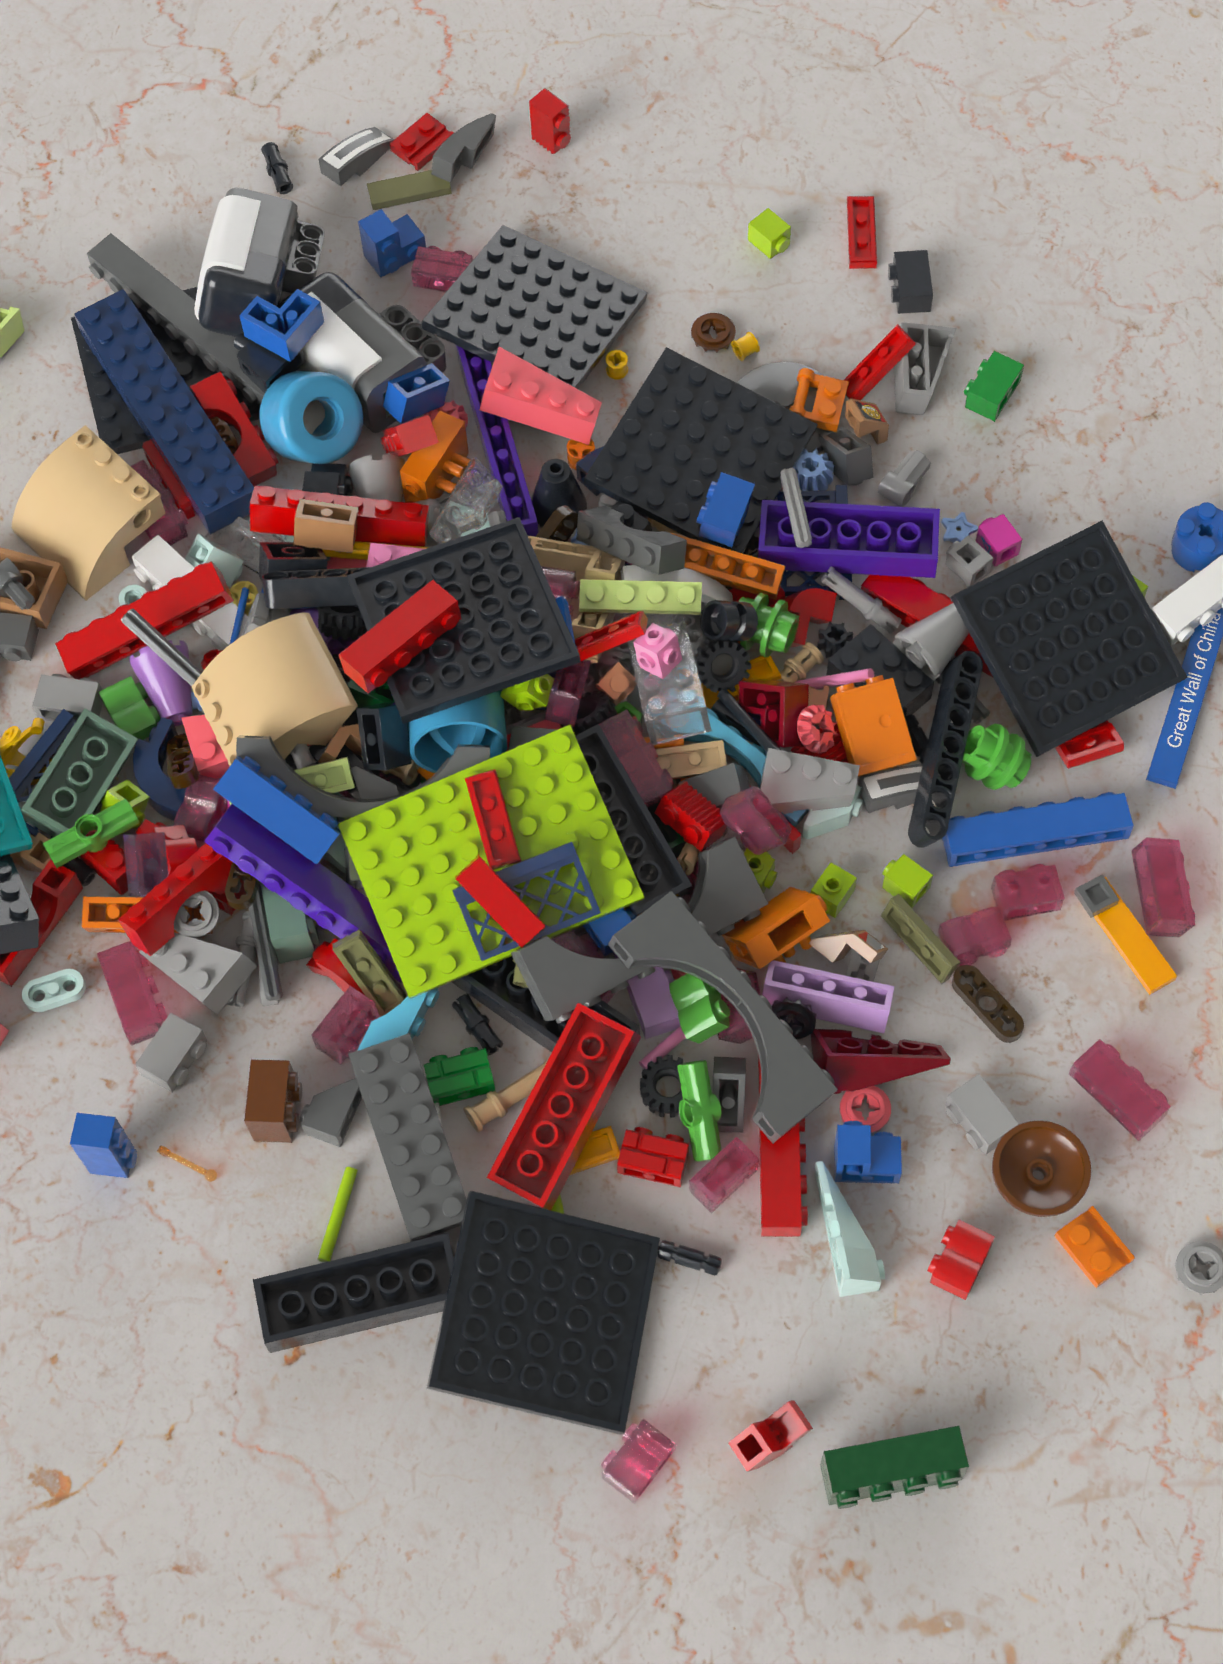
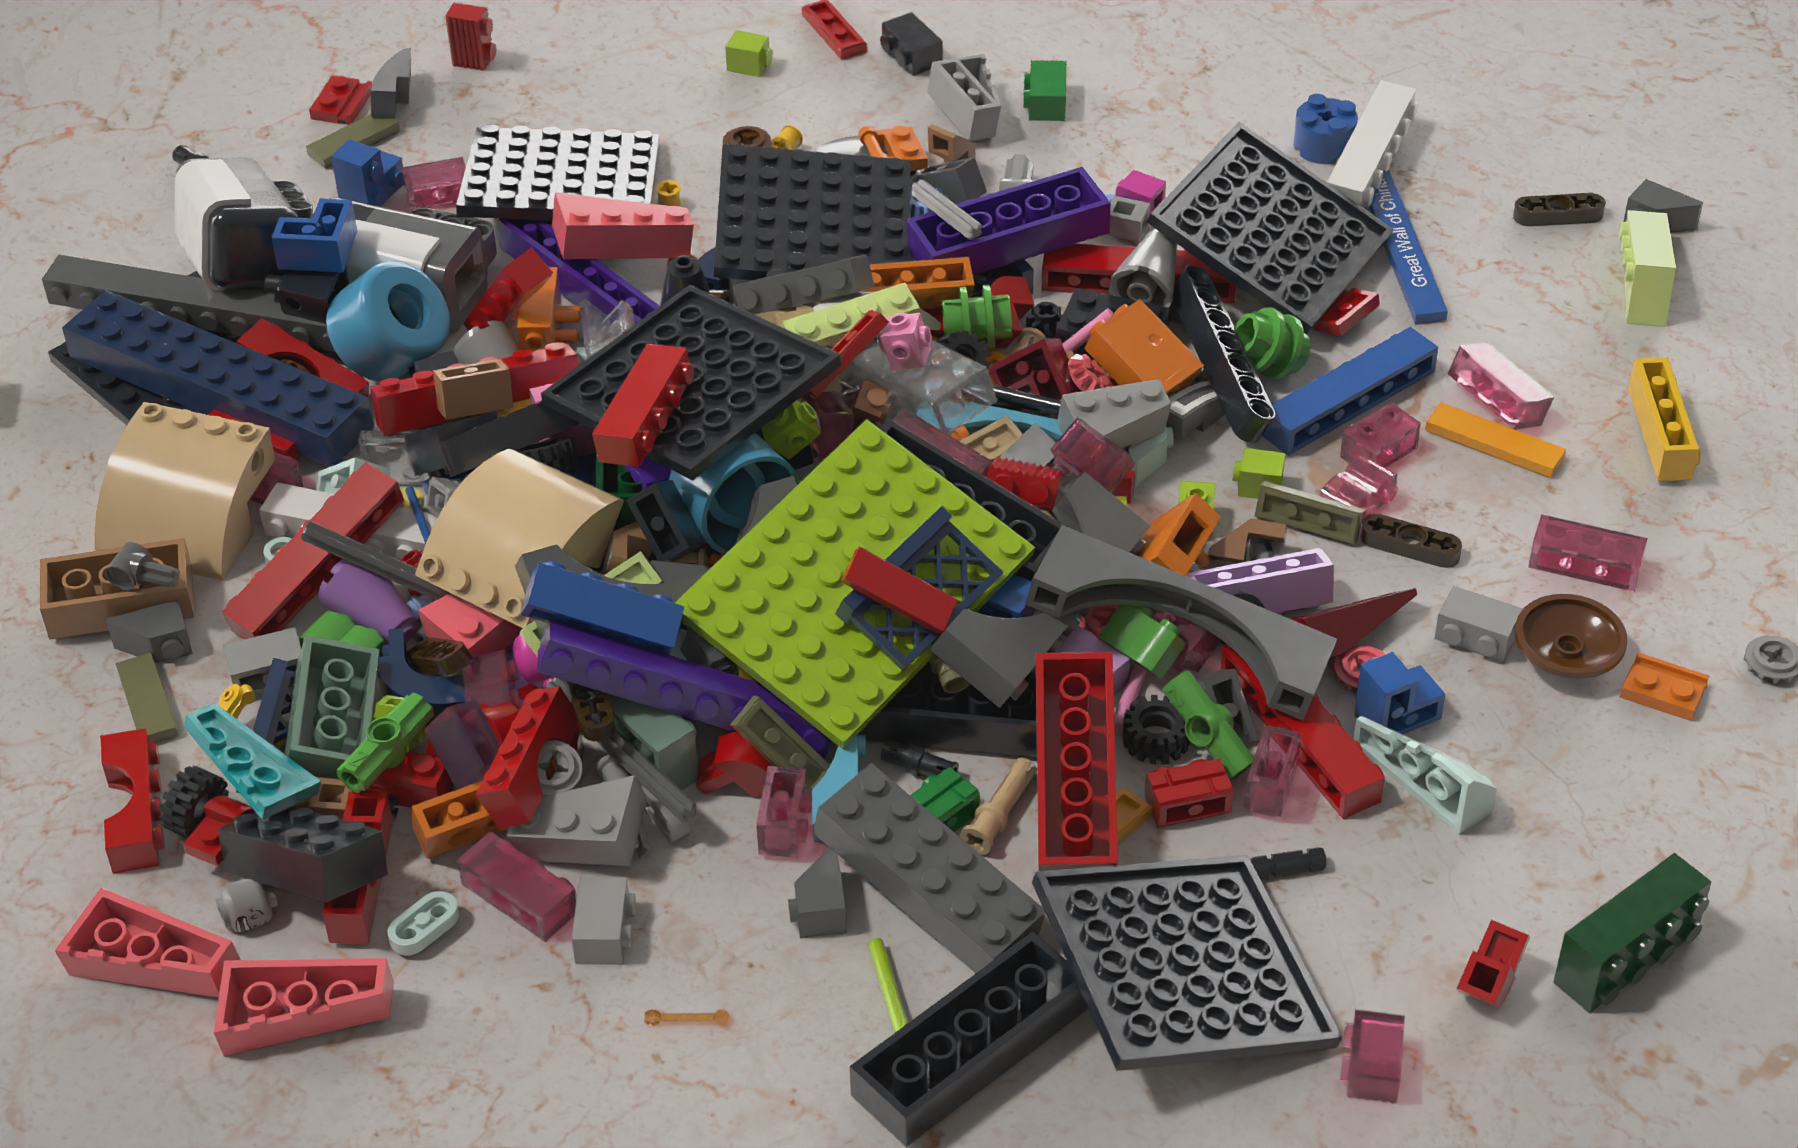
camera: 30 degrees left, 20 degrees down
(103, 1145) = (592, 1016): blue brick -> none
(272, 1101) = (752, 906): reddish brown brick -> none
(354, 155) = (277, 129): slope -> none
(416, 393) = (481, 266): blue brick -> none
(493, 819) = (834, 523): red tile -> none
(725, 509) = (881, 228): blue brick -> none
(728, 620) = (949, 309): black wheel -> none
(862, 601) = (1063, 282): light grey pin -> none
(878, 363) = (932, 98): red tile -> none
(961, 1259) = (1552, 745): red brick -> none
(1096, 896) = (1447, 413): dark grey plate -> none

